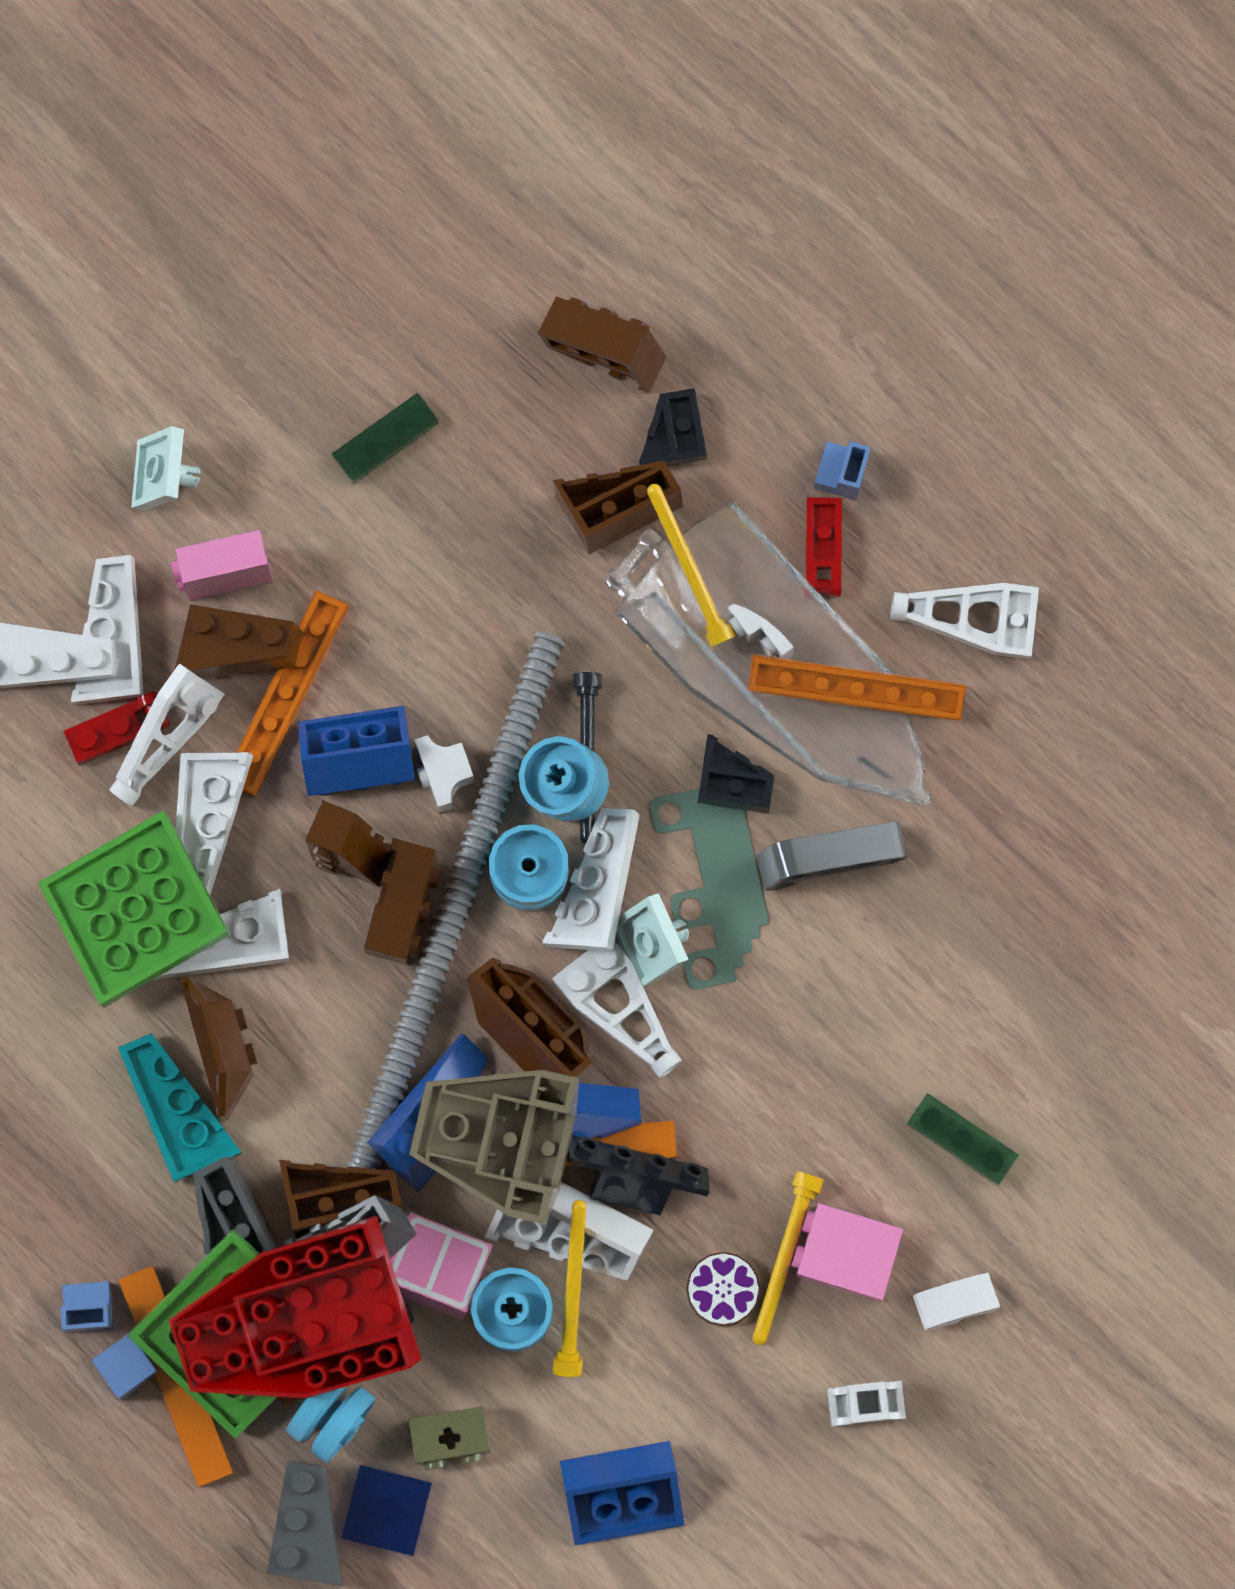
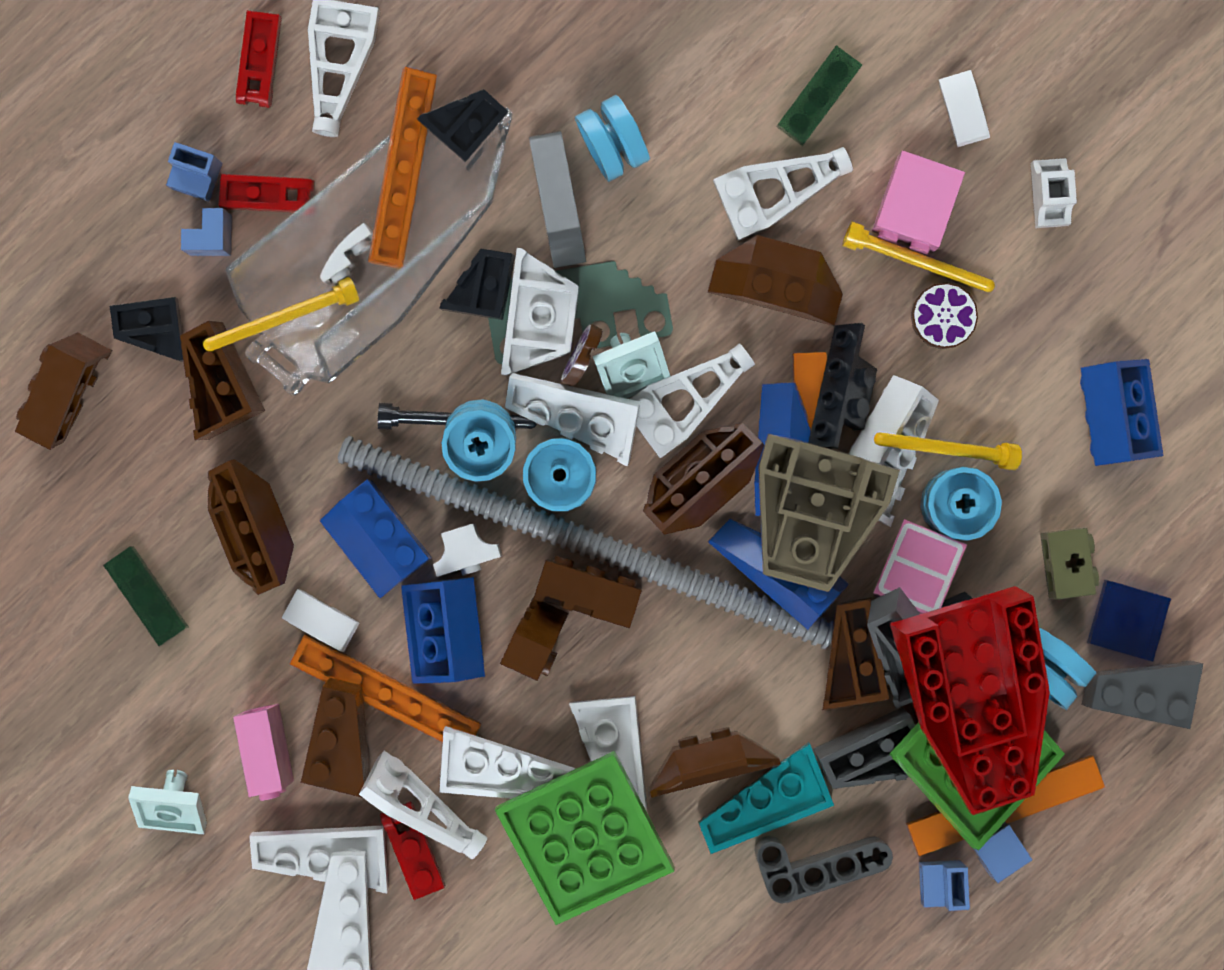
camera: 90 degrees left, 10 degrees up
(109, 1174) = (825, 862): none -> dark grey beam
(363, 621) = (320, 620): none -> white slope
(455, 676) = (375, 538): none -> blue slope
(463, 542) = (249, 526): none -> reddish brown wedge
(660, 885) = (581, 355): none -> reddish brown tile
(704, 840) = (539, 315): none -> white wing
(755, 1103) = (779, 279): none -> reddish brown wedge
(772, 493) = (213, 238): none -> medium blue piece
(840, 1058) = (742, 203): none -> white plate
(902, 914) = (617, 136): none -> medium azure wheel
(908, 751) = (465, 122): none -> black wing
(970, 532) = (258, 58): none -> red plate

